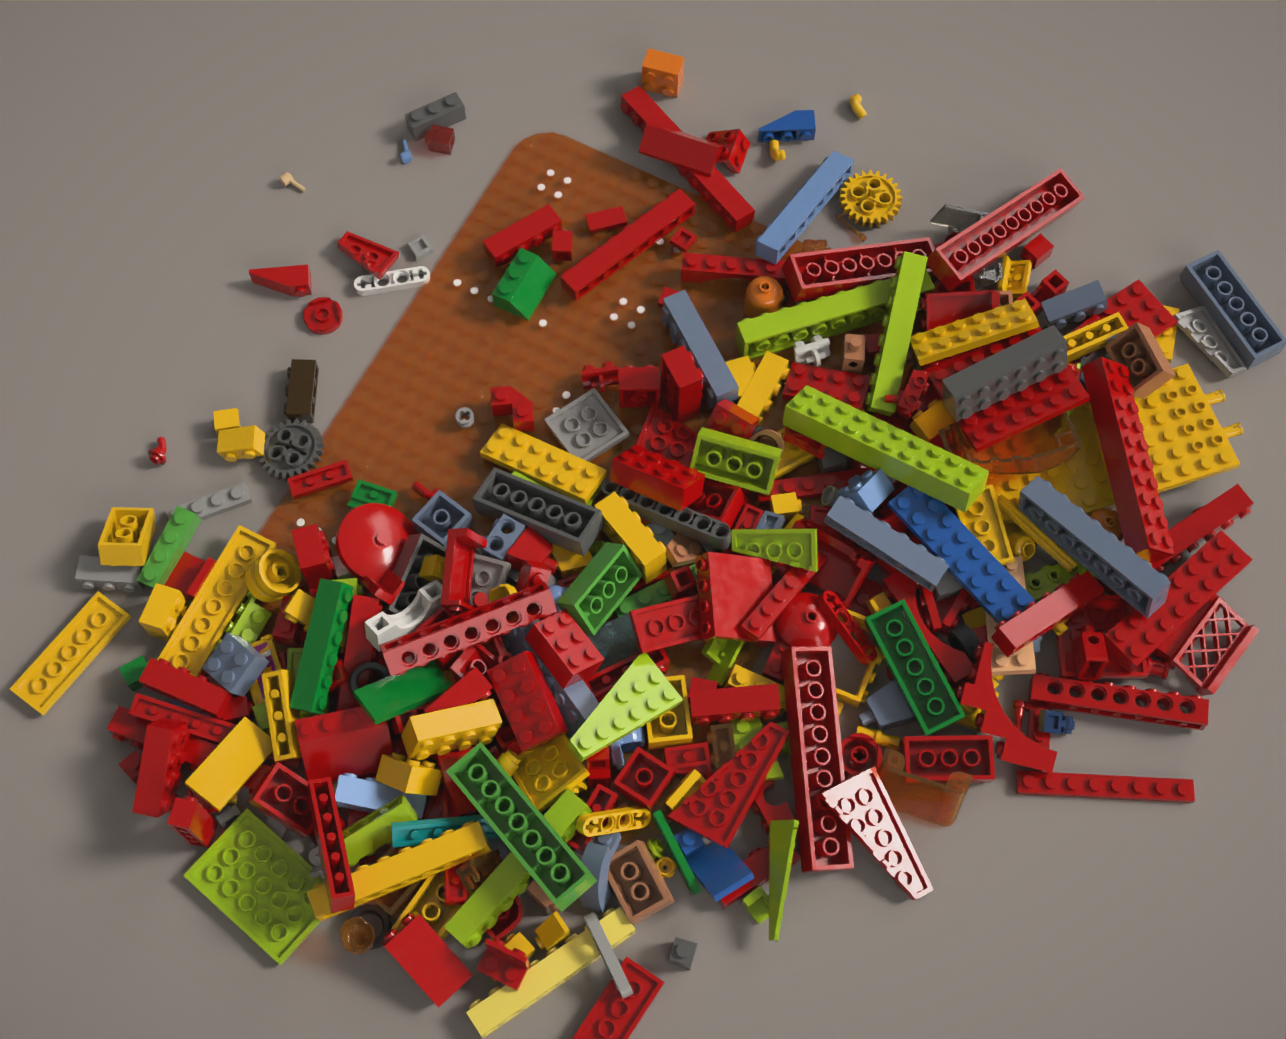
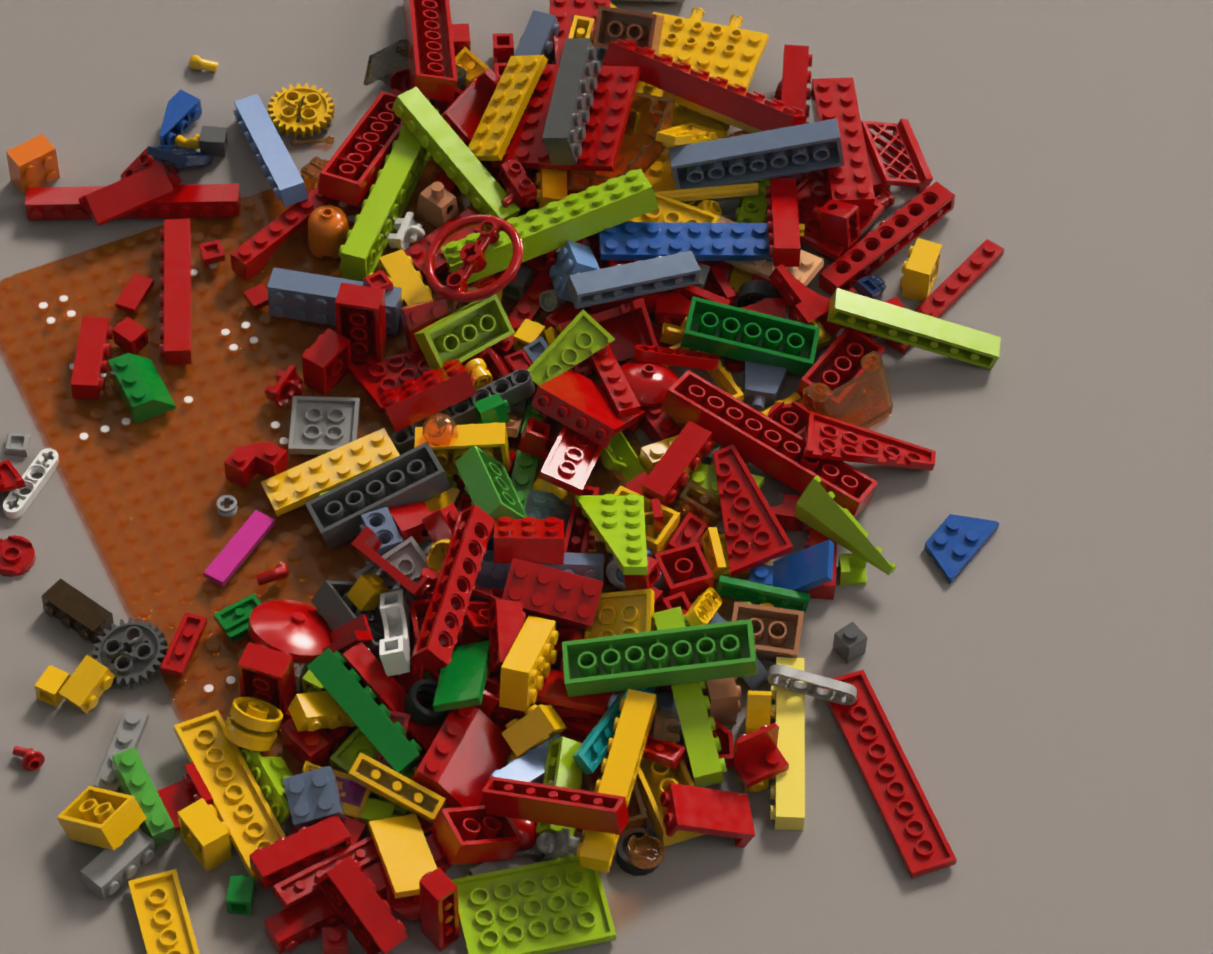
camera: 55 degrees left, 15 degrees down
(434, 452) = (239, 548): none -> dark pink tile
(440, 515) = (312, 568): sand blue brick -> none
(620, 511) = (440, 429): none -> clear orange hair
(670, 723) = (656, 514): none -> red tile
(675, 533) = (492, 409): none -> green brick
(706, 498) = (478, 374): none -> yellow wheel
(727, 369) = (378, 280): none -> red tile
(745, 154) = (179, 156): none -> dark blue plate
(789, 165) = (213, 140): none -> dark grey panel
(798, 416) = (473, 258): none -> red piece
(855, 971) = (958, 542): none -> blue wing
(1033, 790) = (914, 328): none -> lime brick
(1071, 479) = (688, 134): none -> yellow wing
(1106, 751) = (920, 270): none -> yellow brick

